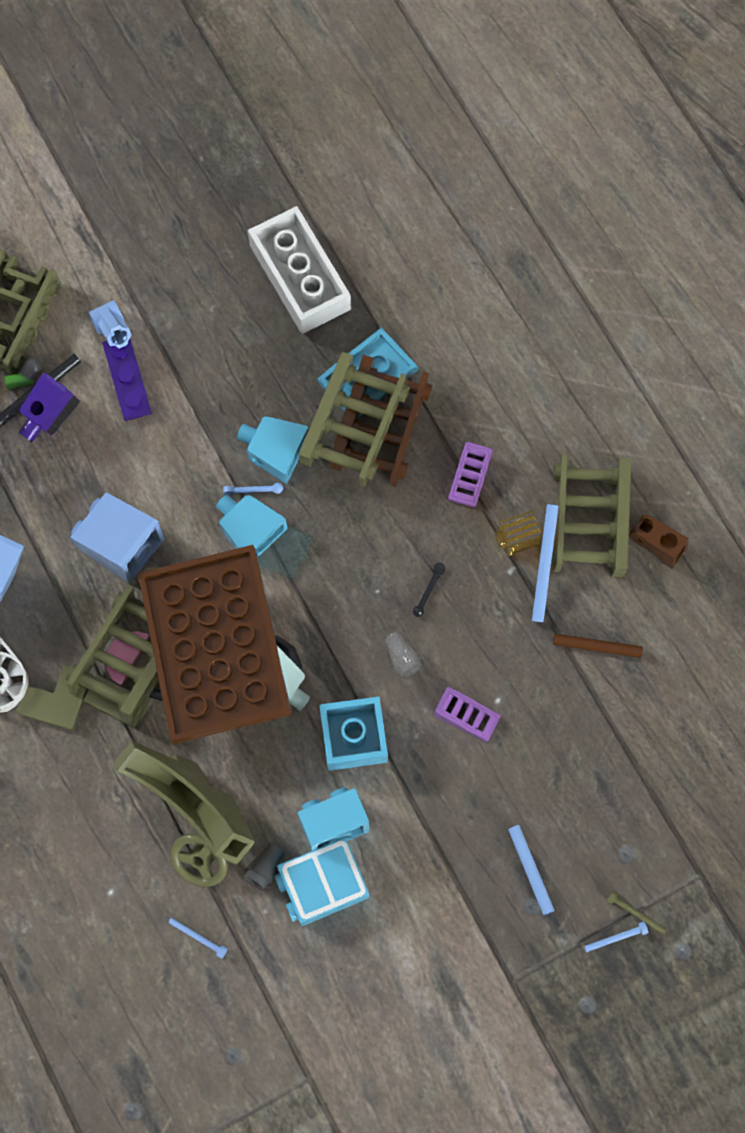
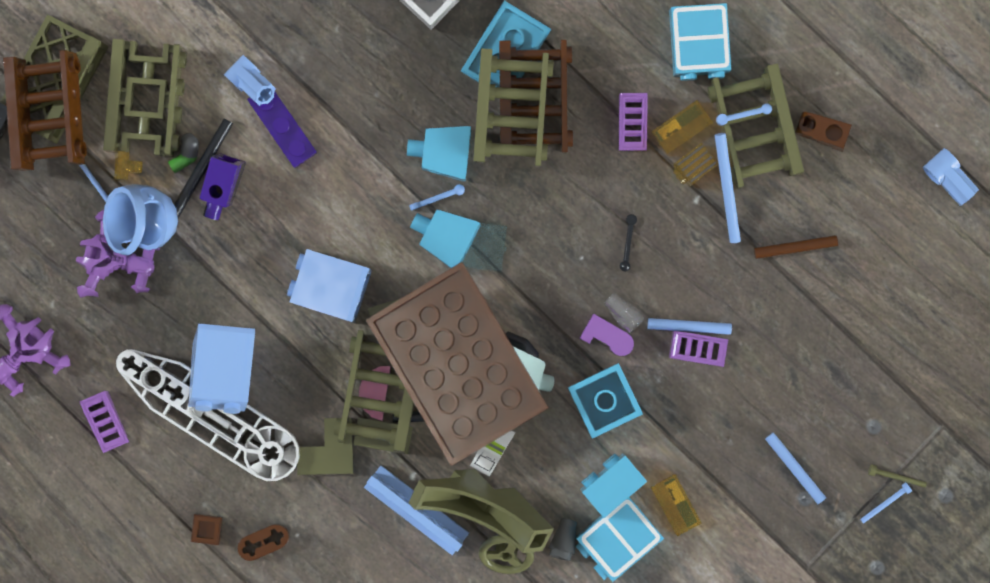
camera: 15 degrees left, 15 degrees up
(123, 790) = (431, 523): none -> light blue fence
(222, 750) = (488, 456): none -> white leg
(379, 671) = (619, 341): none -> medium lavender leg
(393, 868) = (676, 505): none -> clear yellow tile
(471, 692) = (689, 326): none -> light blue bar
(517, 496) = (681, 127): none -> clear yellow tile
(560, 418) = (700, 41): none -> medium azure brick
(560, 493) = (722, 119): none -> light blue hinge

